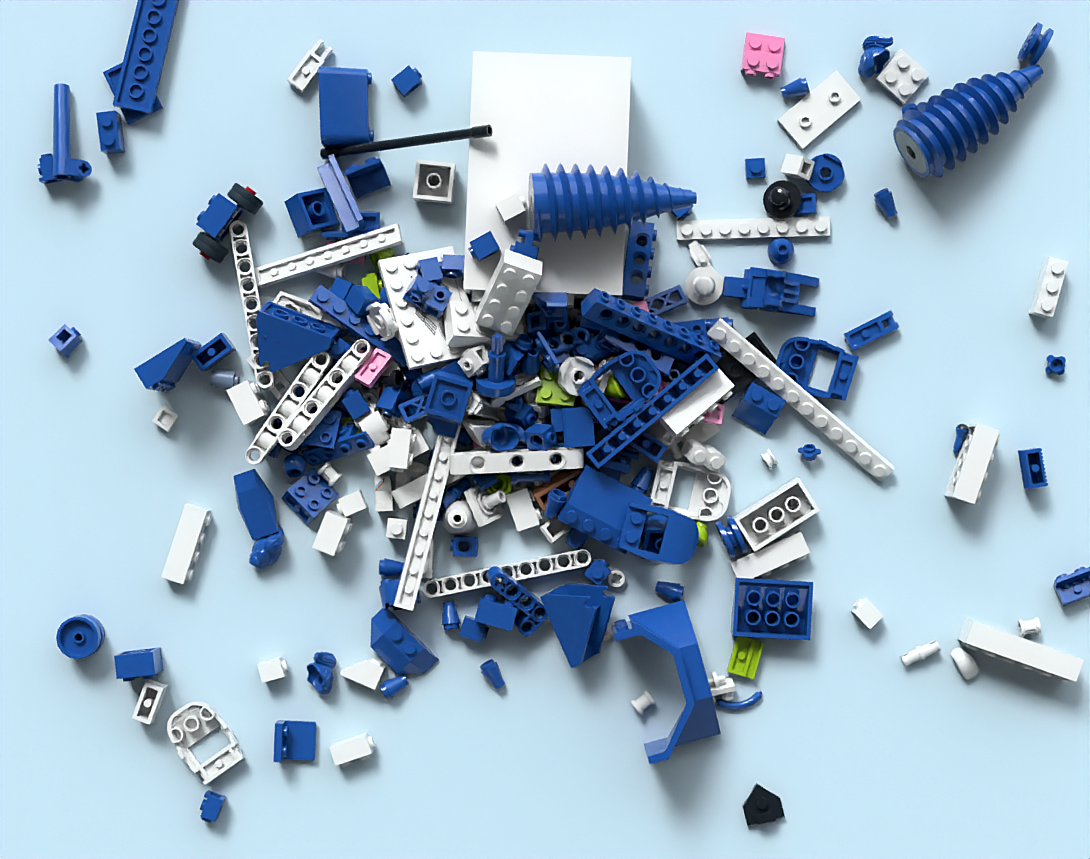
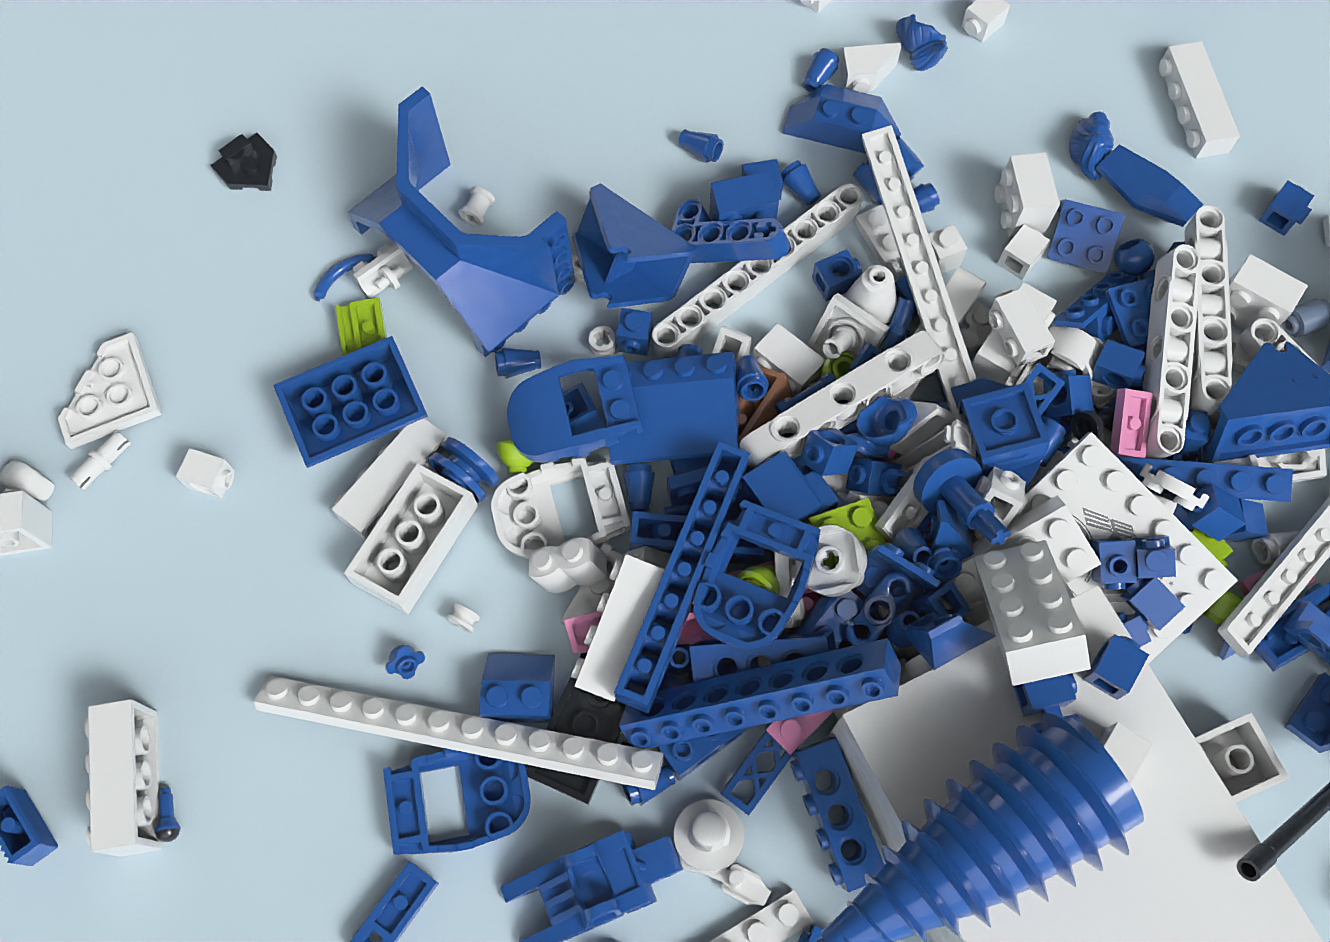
camera: 150 degrees right, 20 degrees down
(186, 448) = (1287, 208): none -> blue brick
(329, 473) = (1080, 272): white bush -> none
(383, 493) = (984, 268): white leg -> none
(899, 691) = (110, 394): none -> white plate

